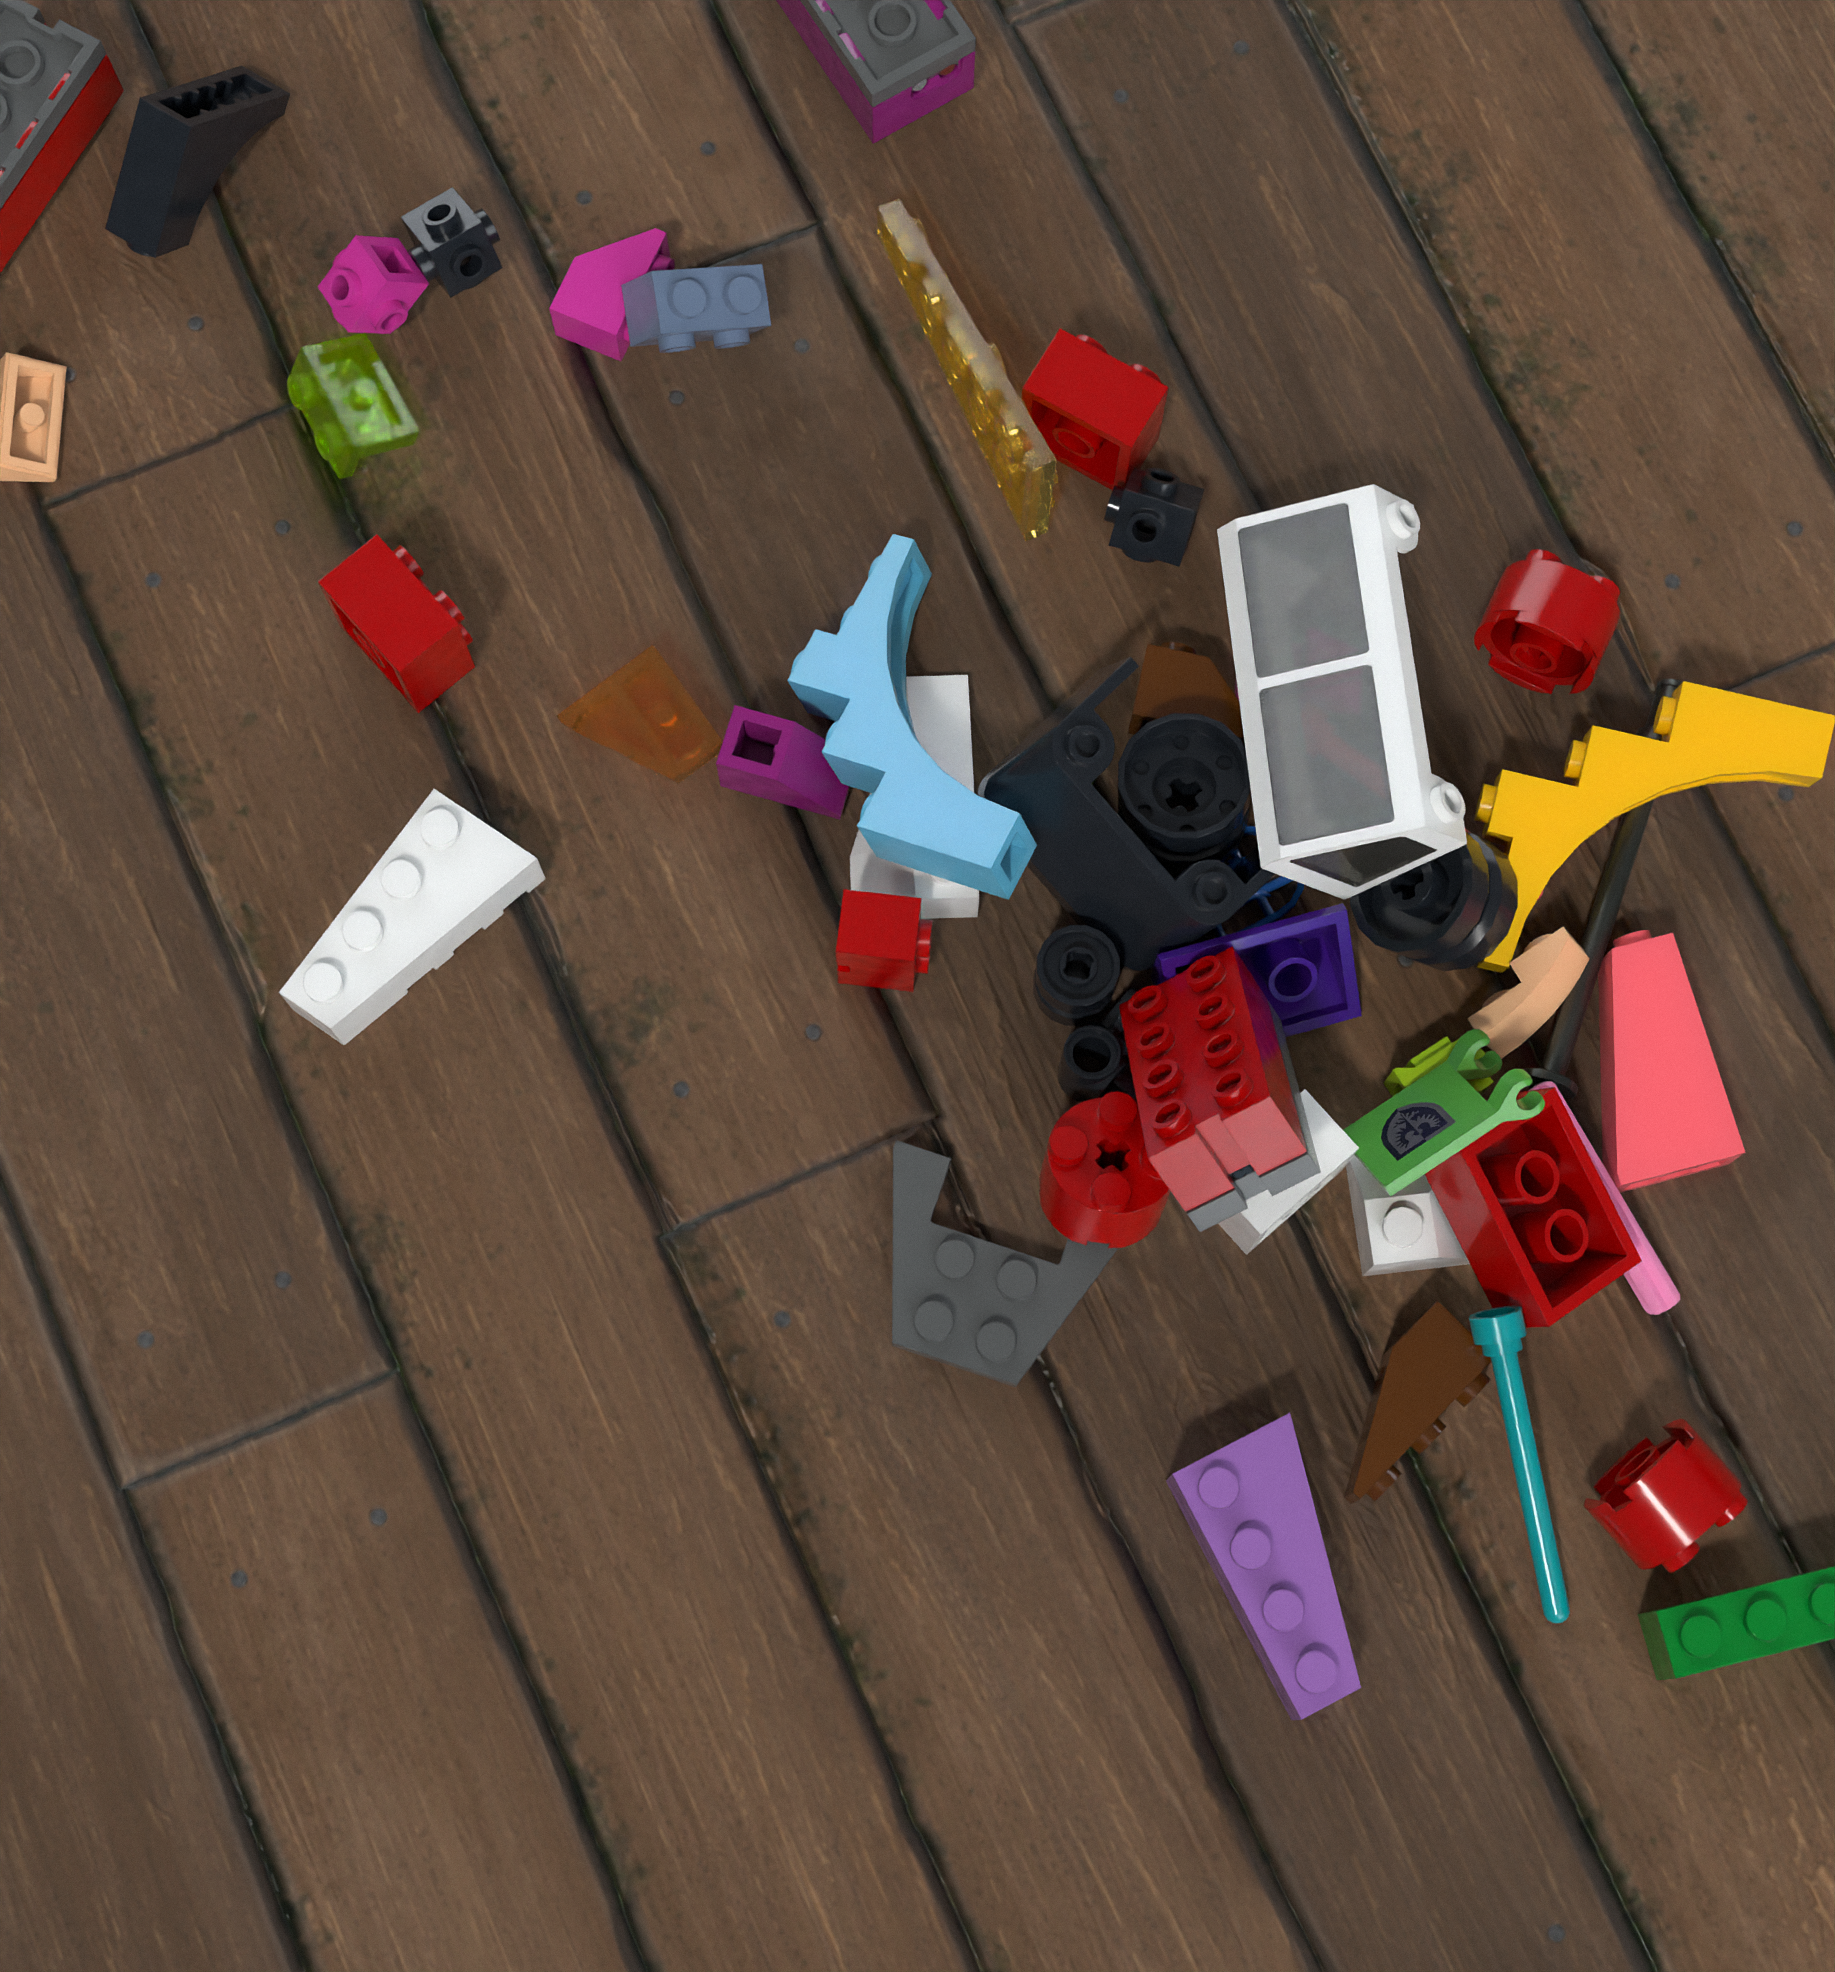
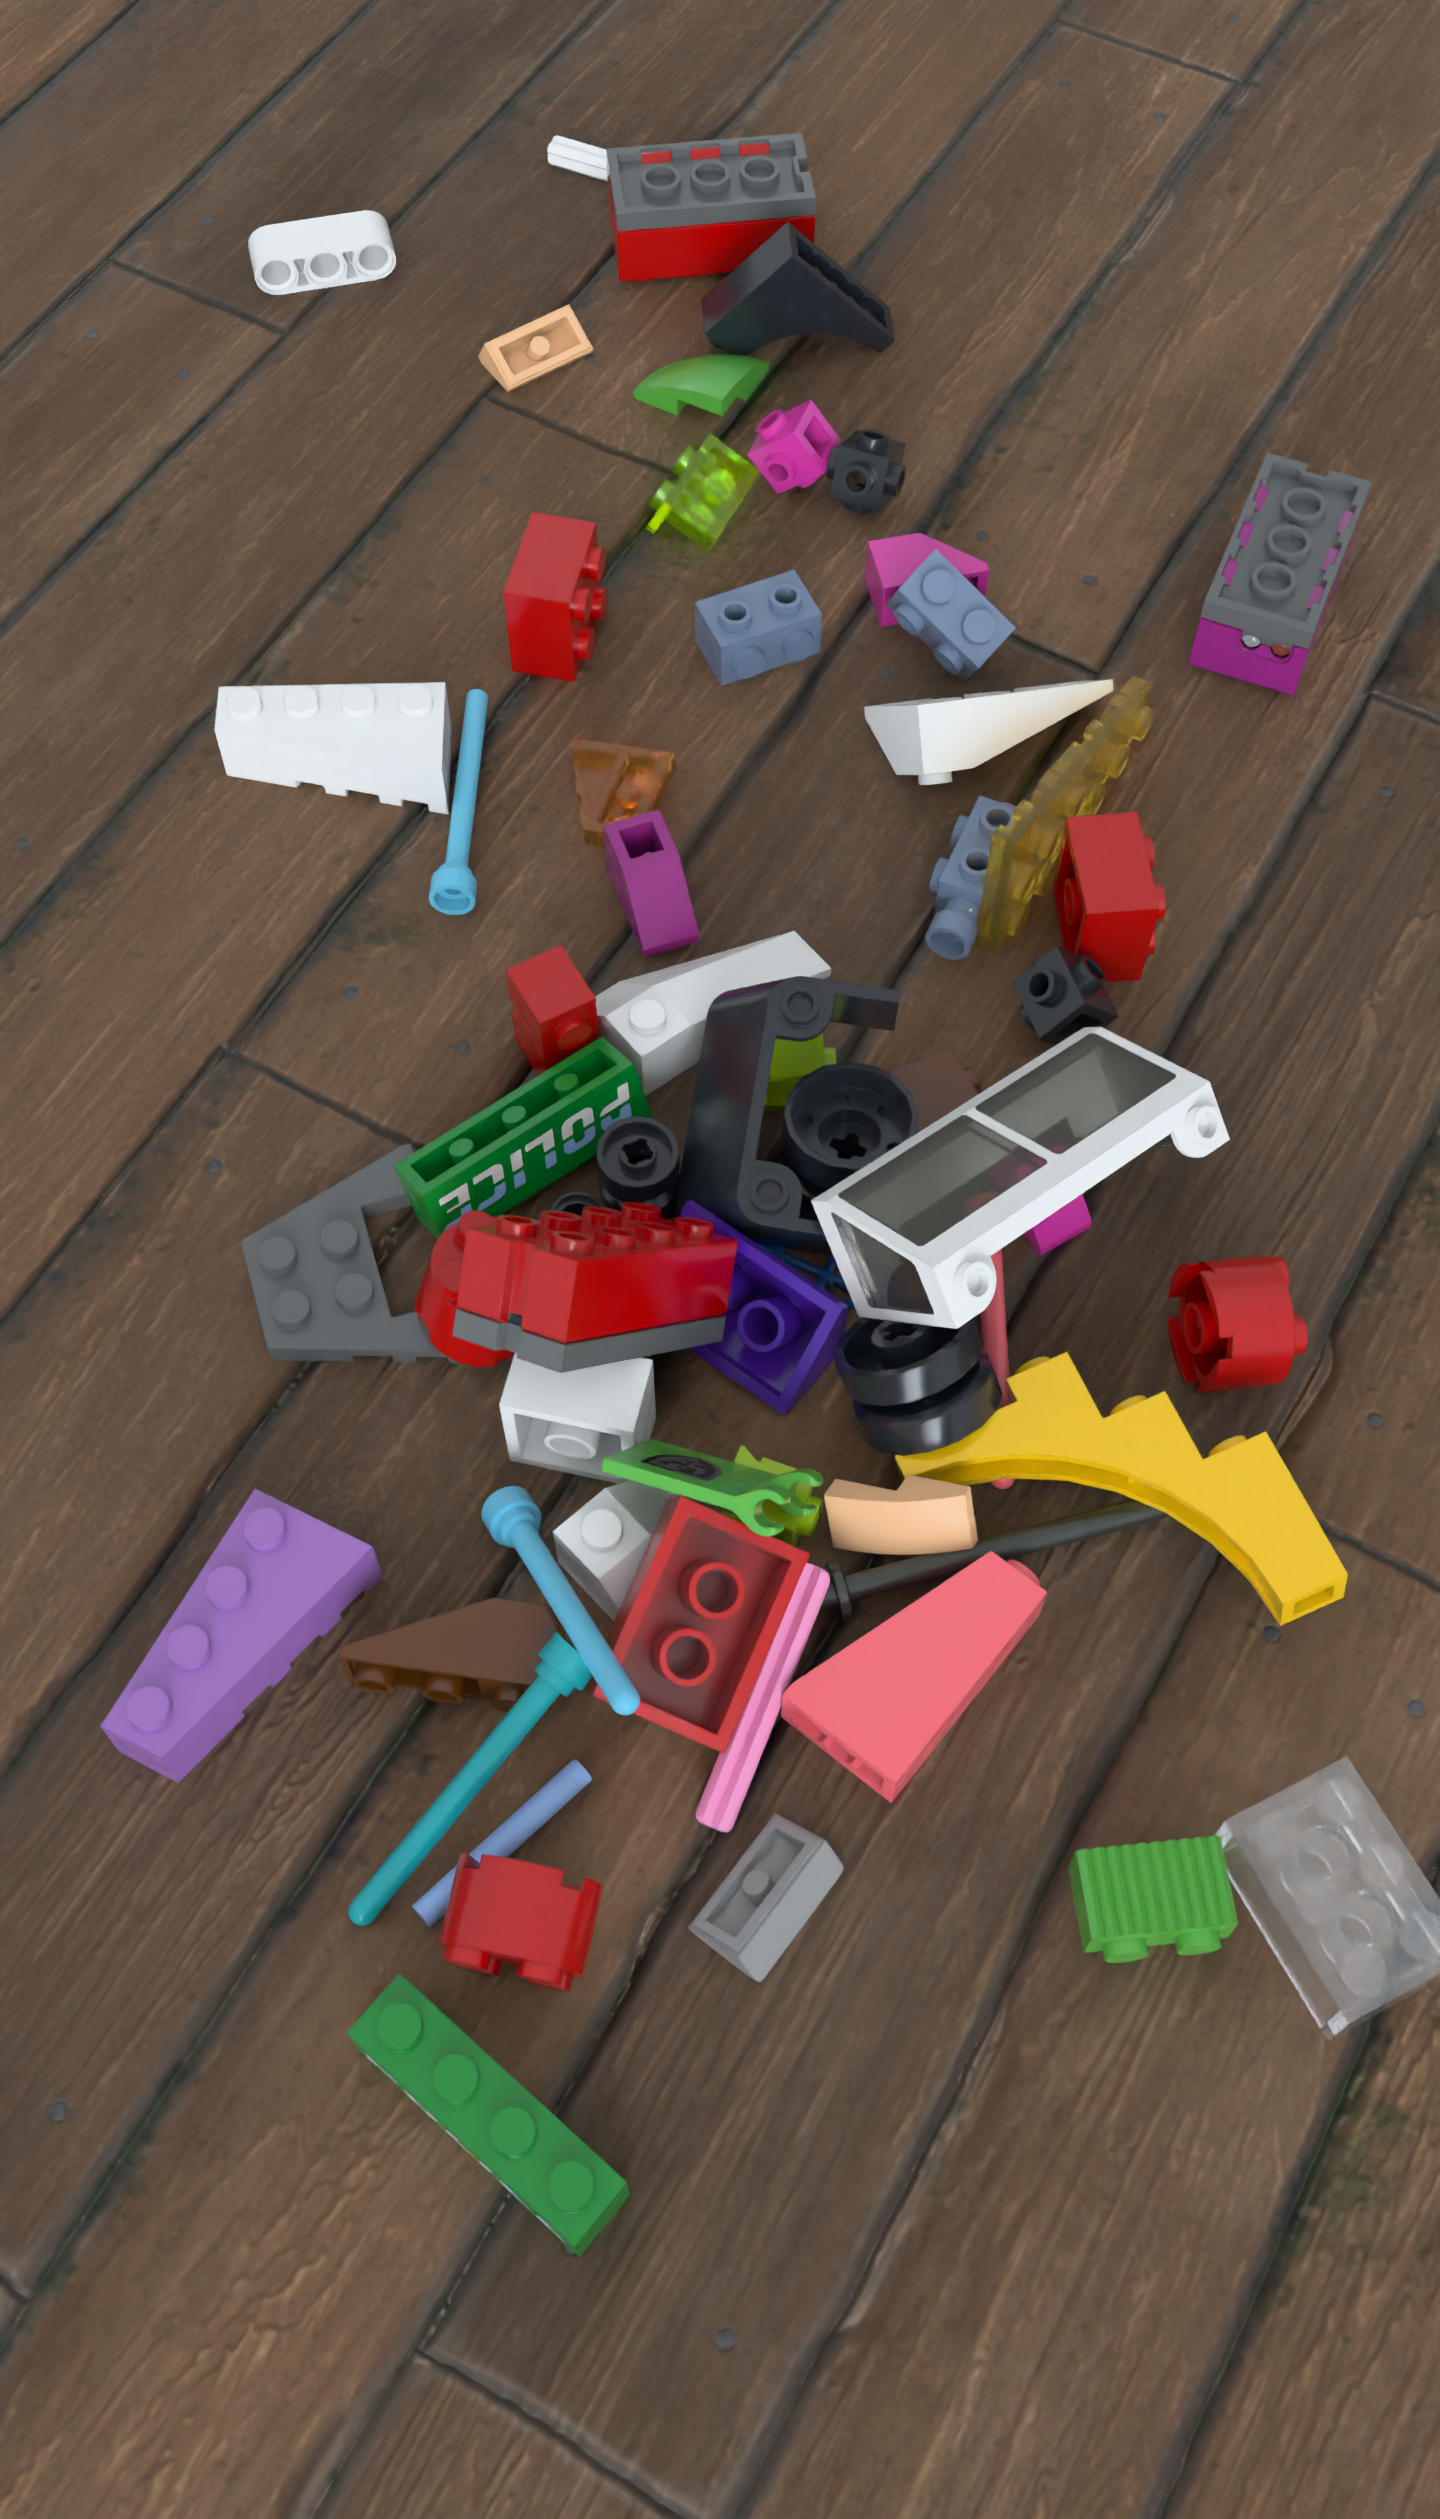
camera: 55 degrees right, 15 degrees down
(198, 300) = (702, 381): none -> bright green brick
(558, 470) = (757, 627): none -> sand blue brick
(644, 927) = (453, 884): none -> medium azure piece
(812, 383) = (959, 734): none -> white wedge
(915, 808) = (710, 919): medium azure arch -> none
(974, 505) = (962, 879): none -> sand blue brick
(979, 1047) = (523, 1139): none -> green brick
(1318, 1288) = (515, 1523): none -> medium azure piece
(1572, 1470) = (510, 1834): none -> light blue bar
(1741, 1304) = (768, 1896): none -> light grey slope

